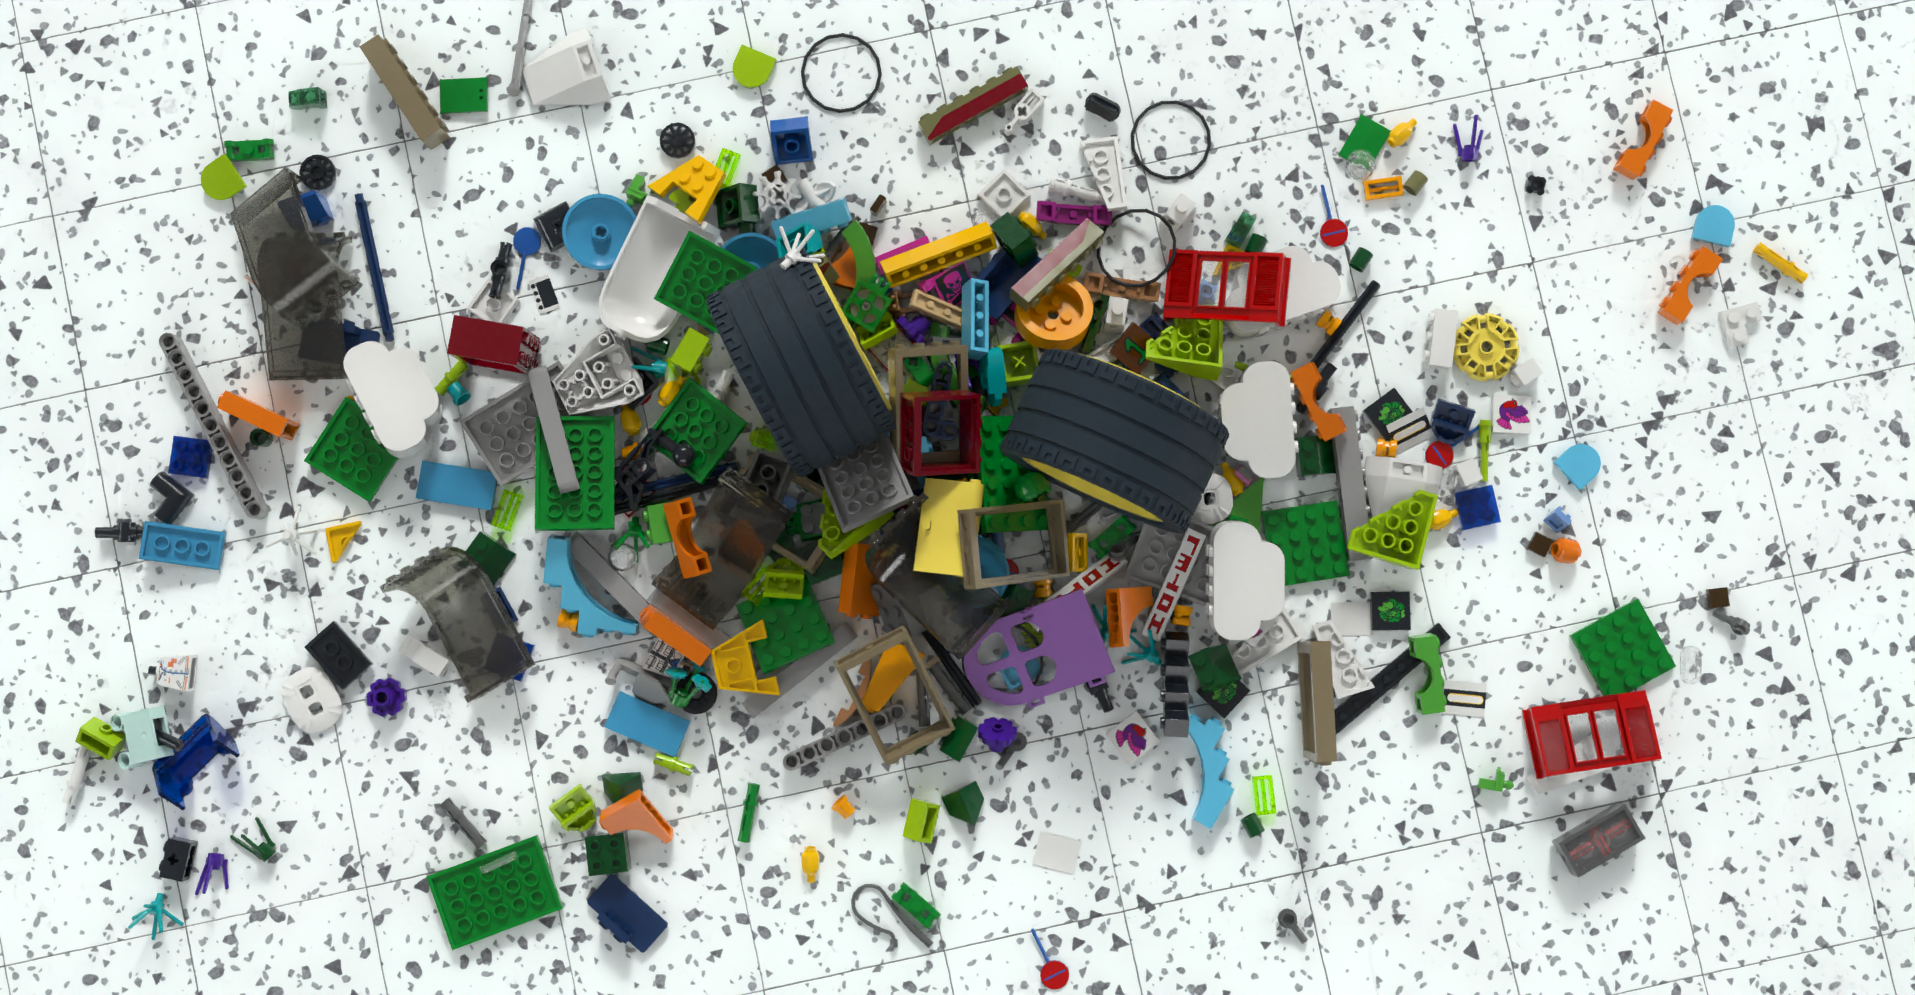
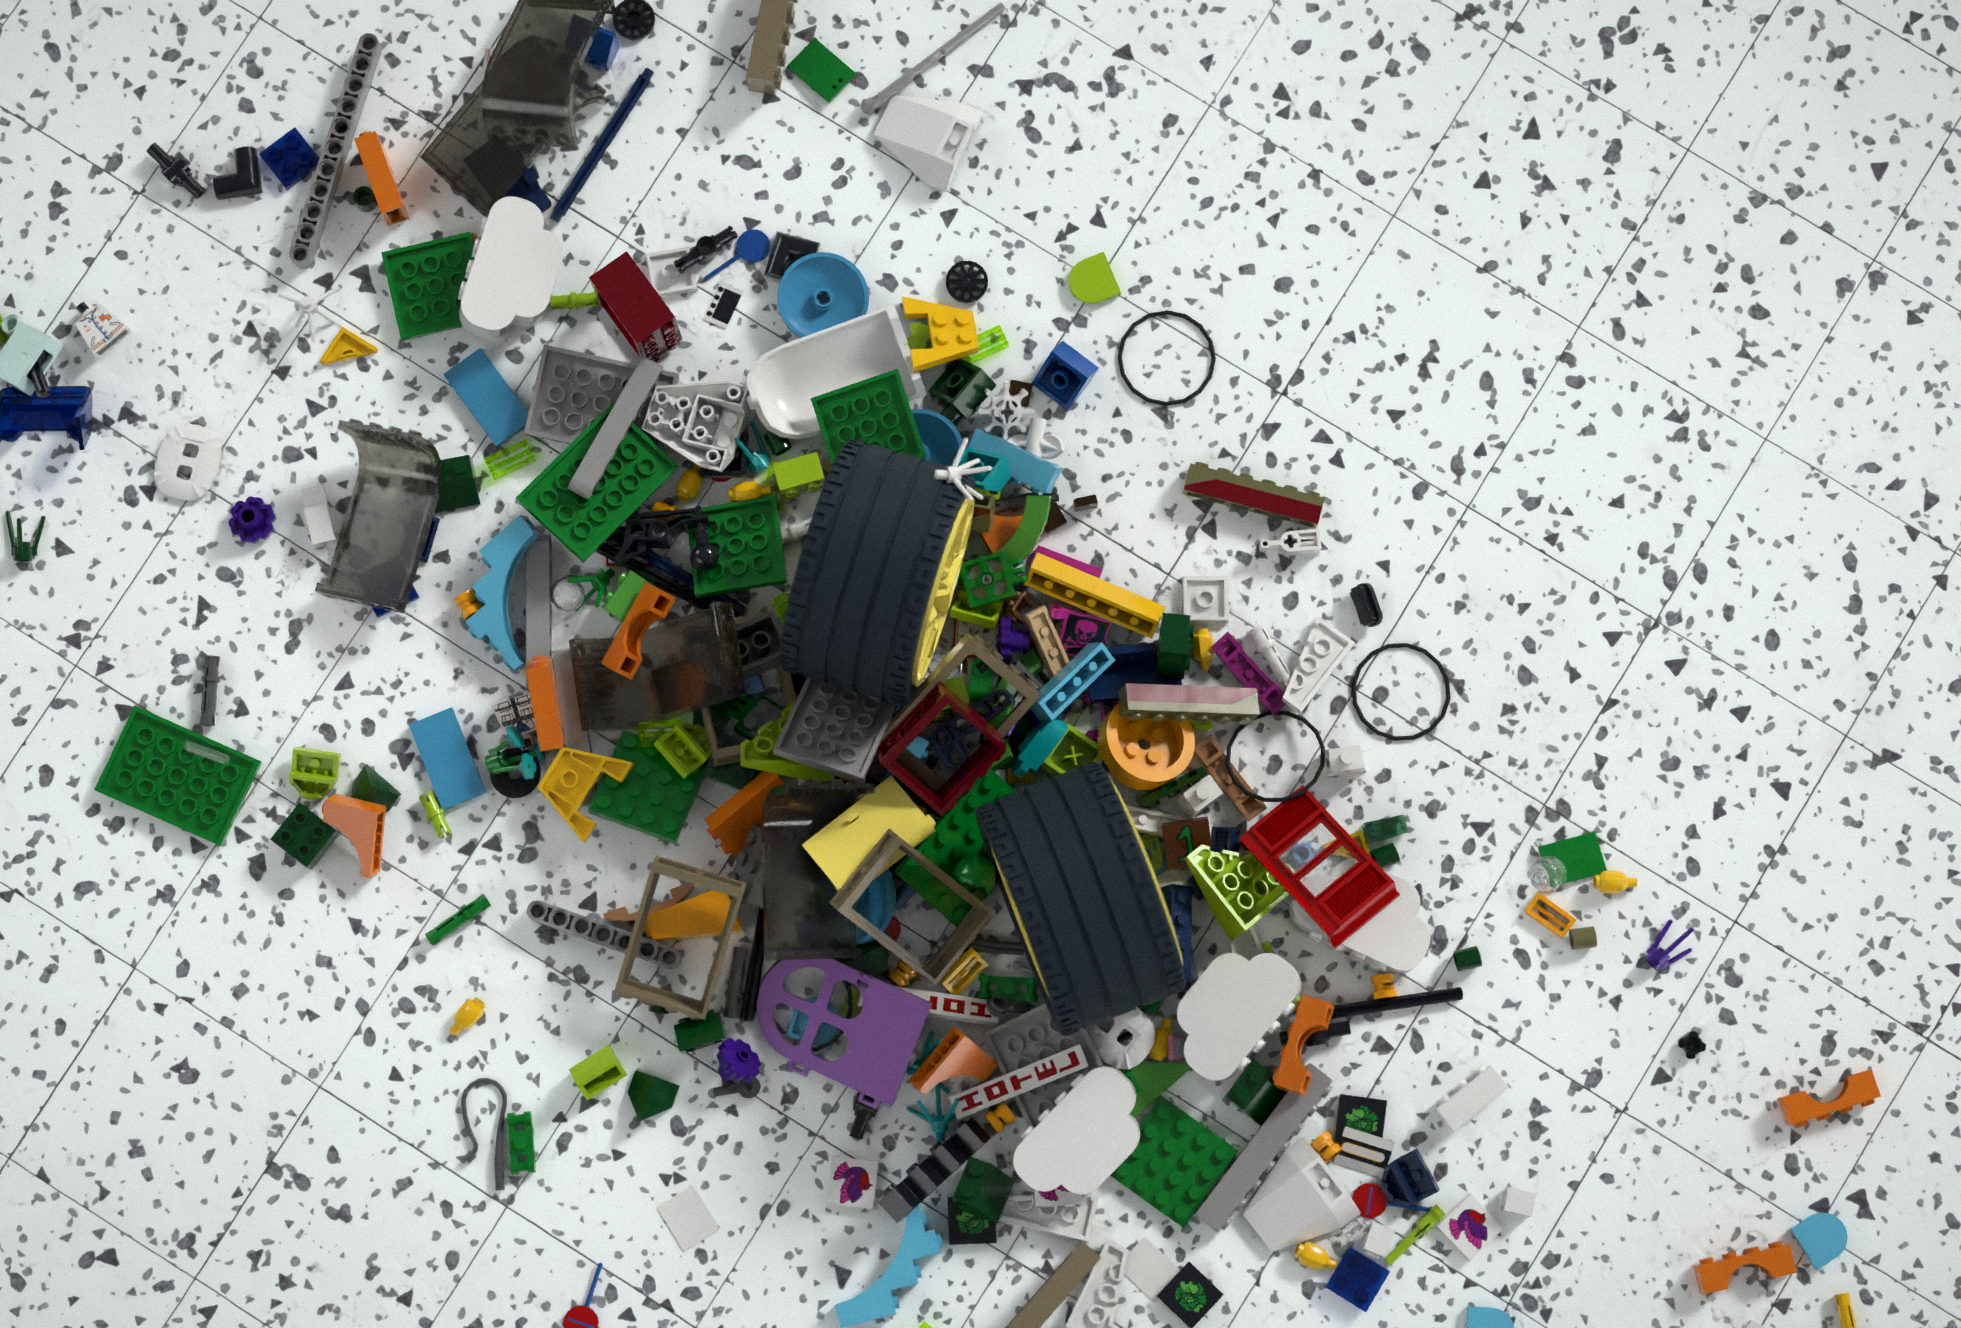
camera: 45 degrees right, 5 degrees down
(182, 545) = (210, 226): dark azure tile -> none
(338, 655) = (247, 445): black plate -> none
(458, 393) = (566, 320): teal piece -> none
(626, 914) = (268, 904): dark blue bracket -> none
(634, 191) = (885, 291): bright green piece -> none
(647, 685) = (480, 725): light grey piece -> none
(800, 670) = (623, 840): light grey beam -> none
(843, 807) = (543, 995): light orange piece -> none
(923, 703) = (700, 972): dark grey pin -> none
(1333, 231) = (1468, 911): red piece -> none
(1398, 533) = (1261, 1230): lime slope -> none
(1477, 355) = (1490, 1144): light yellow plate -> none

